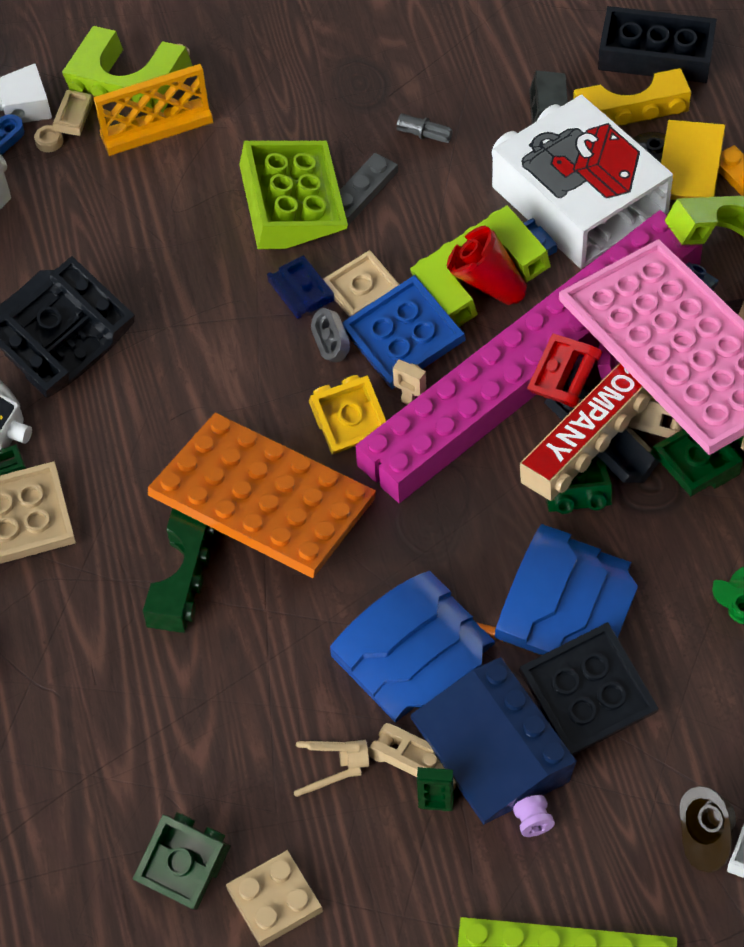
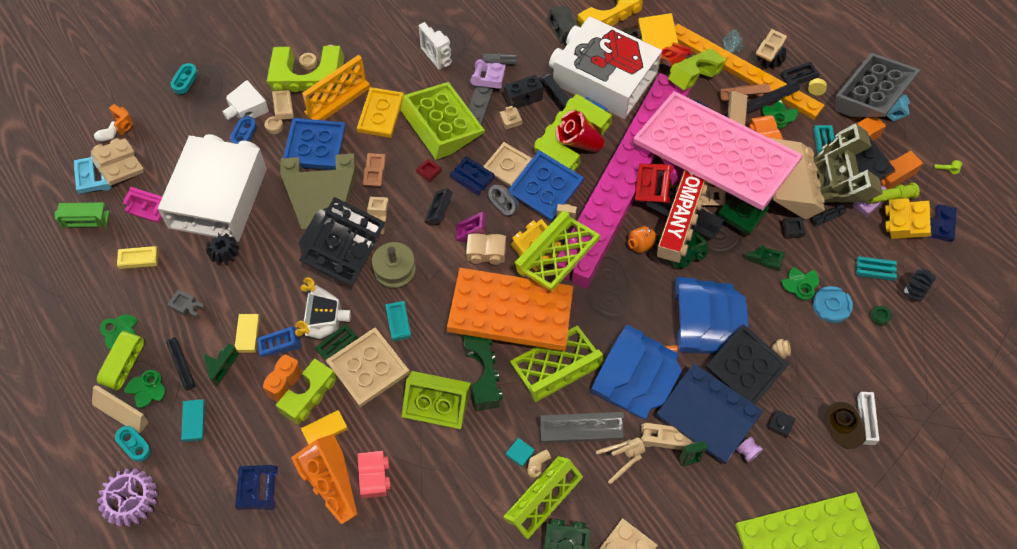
camera: 25 degrees left, 5 degrees up
(52, 238) = (316, 189): none -> olive wedge
(92, 179) = (315, 142): none -> blue plate
(93, 589) = (435, 399): none -> lime slope
(94, 464) = (398, 321): none -> teal tile
(122, 381) = (393, 265): none -> olive wheel
(138, 59) = (308, 61): none -> tan tile
(140, 298) = (378, 208): none -> tan slope
(162, 241) = (374, 170): none -> nougat slope
(180, 768) = (542, 492): none -> lime fence
(181, 706) = (520, 452): none -> teal tile
(198, 727) = (536, 461): none -> tan arm
(208, 161) = (380, 112): none -> yellow tile
(236, 311) = (438, 207): none -> black plate
(241, 262) = (428, 170): none -> dark red tile
(265, 364) = (472, 225): none -> magenta slope
(270, 397) = (486, 248): none -> tan brick
(289, 699) = (581, 427): none -> dark grey fence
(300, 614) = (562, 377): none -> lime fence
(331, 84) = (435, 46): none -> white plate
(357, 412) = (546, 243): none -> lime fence
(398, 153) = (494, 74): none -> lavender plate
(401, 219) = (510, 117): none -> tan tile
(435, 185) = (523, 92): none -> black brick
(483, 192) = (554, 91): none -> black beam
(511, 450) = (642, 239): none -> orange head
(607, 796) = (781, 423): none -> black plate
(662, 683) = (782, 348): none -> tan plate
(694, 186) = (674, 54): none -> red plate
(707, 540) = (766, 257): none -> dark green slope

